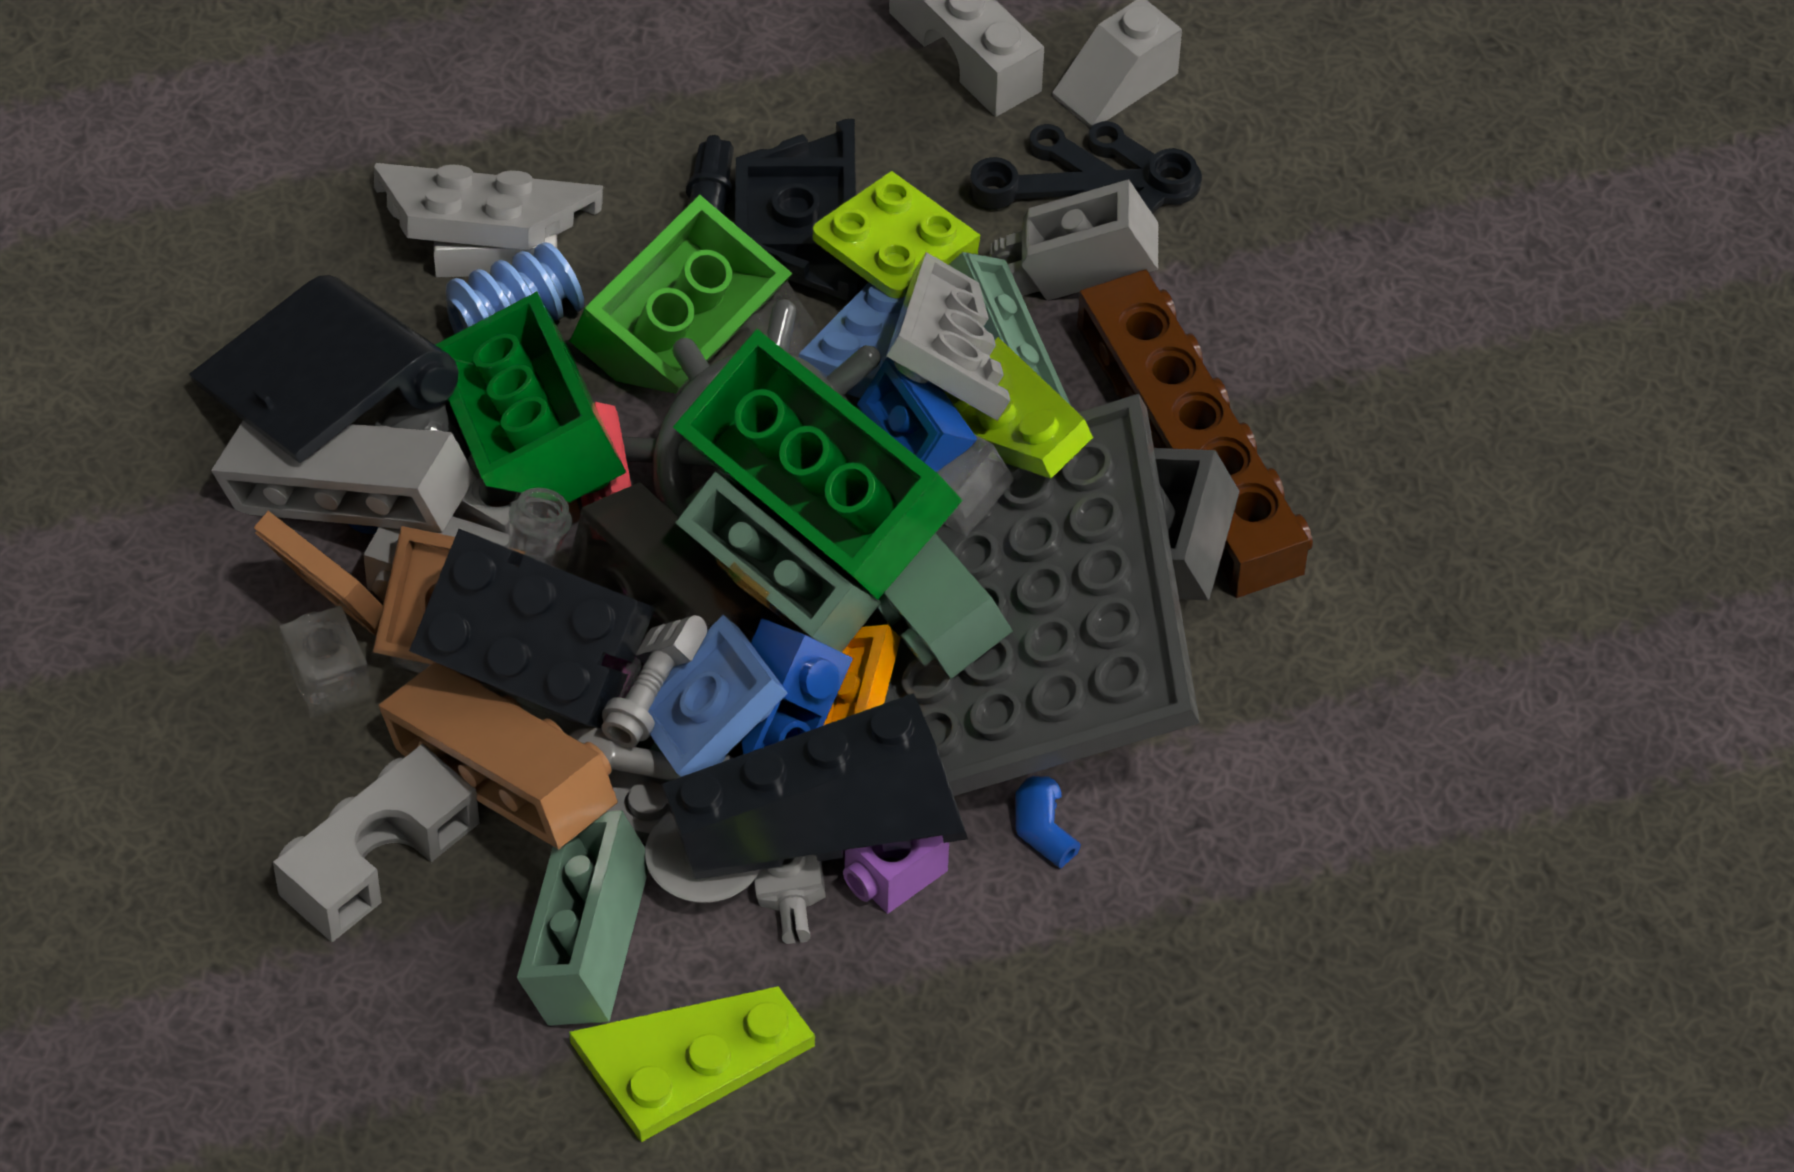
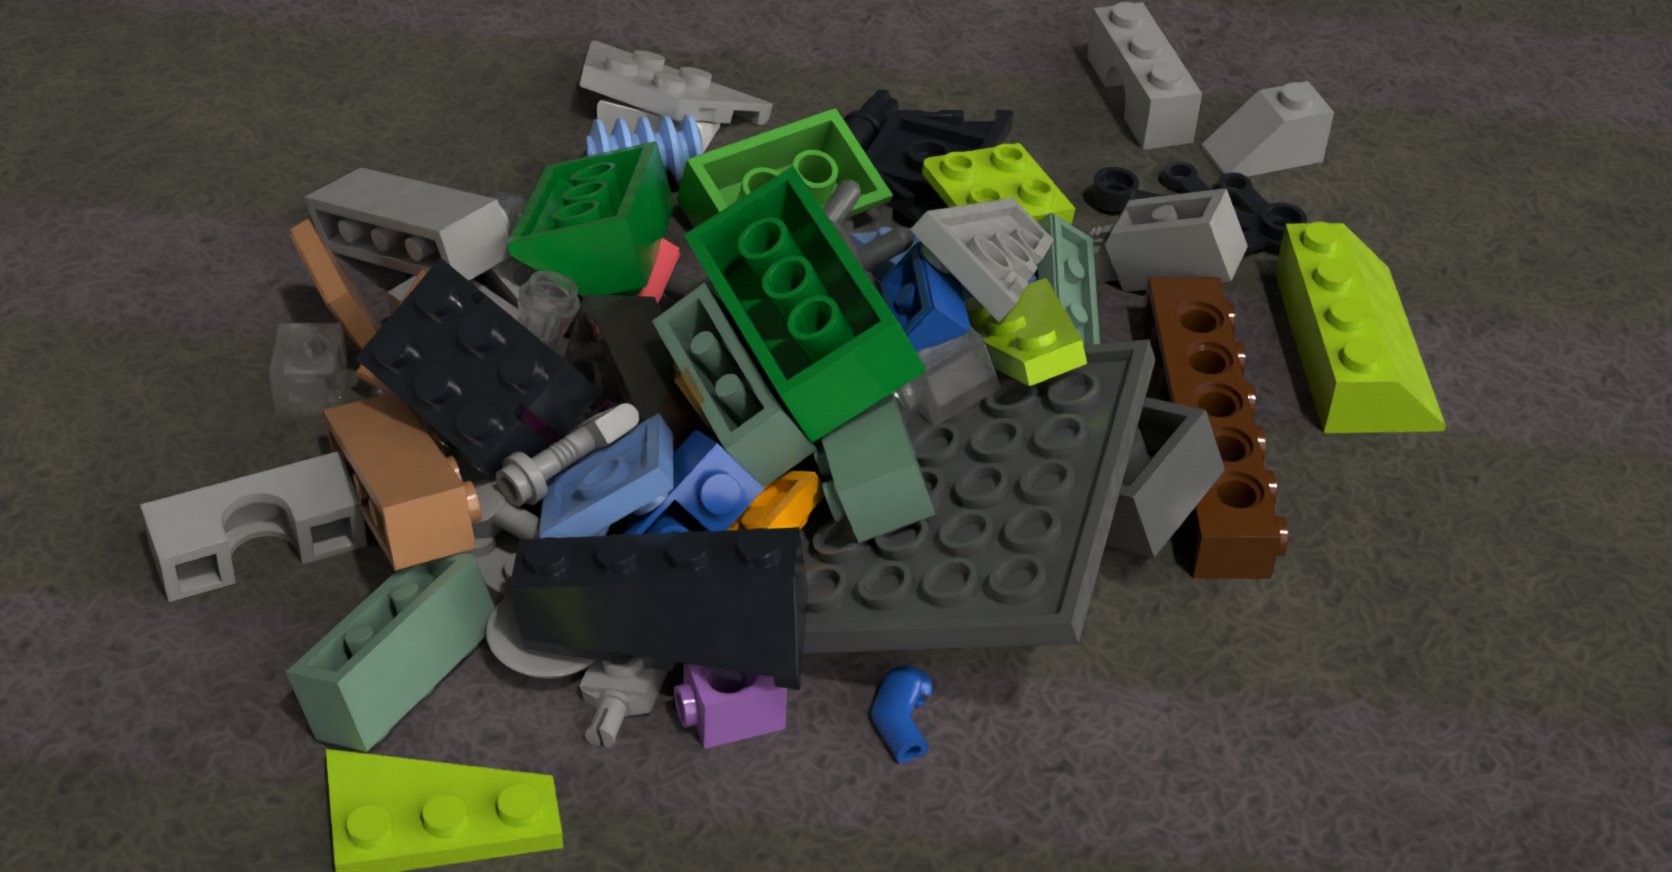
camera: 20 degrees right, 10 degrees down
(322, 366) = (445, 140): black door -> none
(1284, 283) = (1353, 334): none -> lime slope

